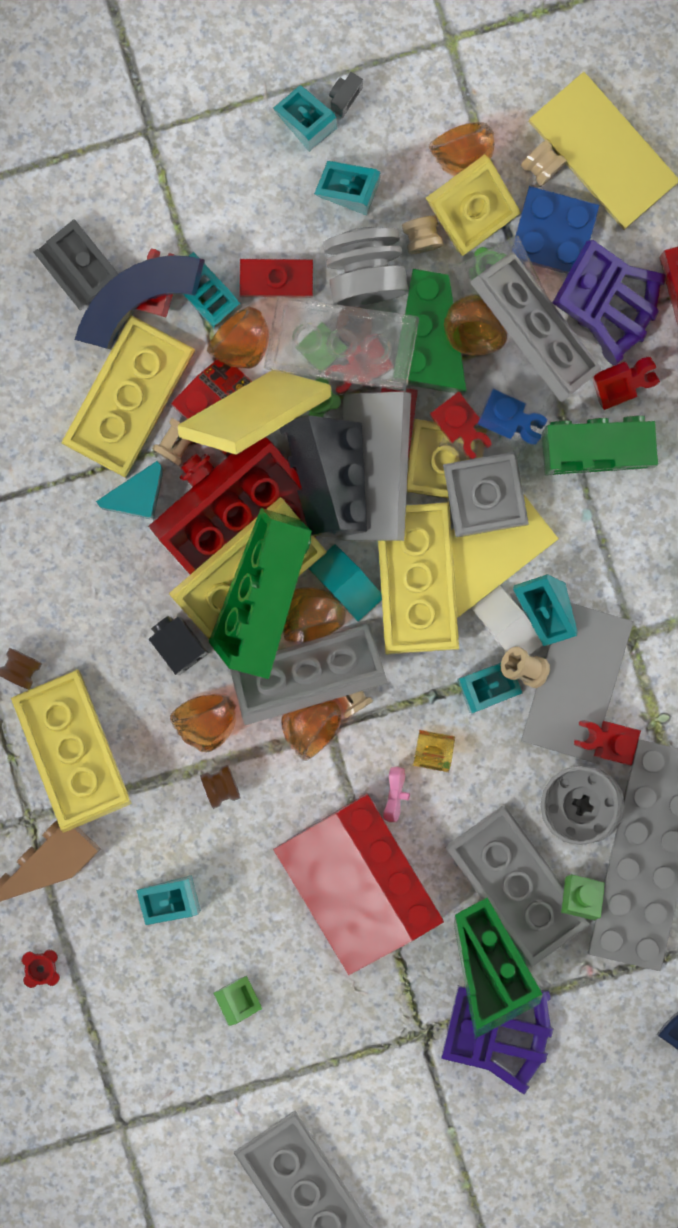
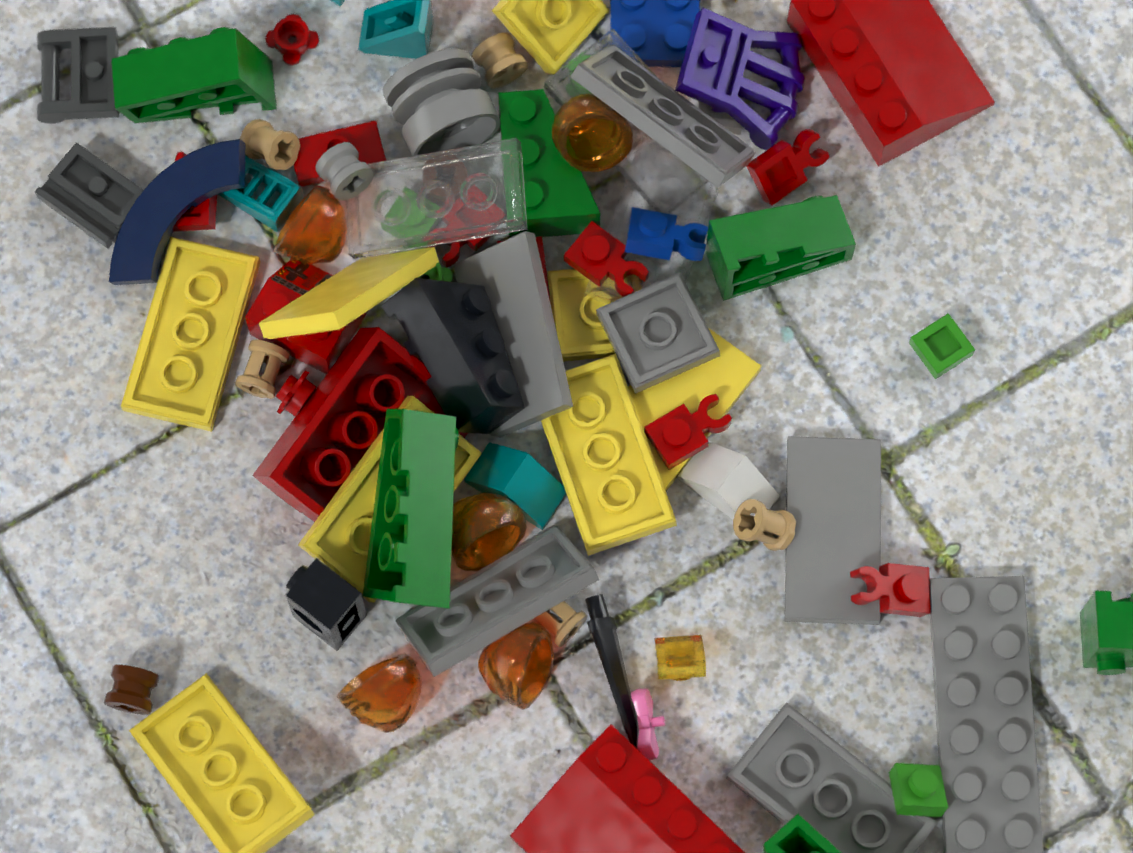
camera: 20 degrees left, 15 degrees down
(100, 160) = (90, 74): none -> dark grey plate
(136, 495) = (227, 444): teal slope -> none
(177, 188) = (191, 75): none -> green wedge
(219, 254) = (276, 147): none -> tan bush
(220, 786) = (422, 770): reddish brown wheel -> none
(268, 162) = (292, 26): none -> red plate
(276, 303) = (344, 171): none -> light grey wheel
(382, 731) = (607, 644): none -> black bar
(481, 578) = (681, 434): none -> red plate
(487, 688) = (723, 564): teal slope -> none
(547, 608) = (770, 445): teal slope -> none
(564, 816) = (866, 649): light grey wheel -> none

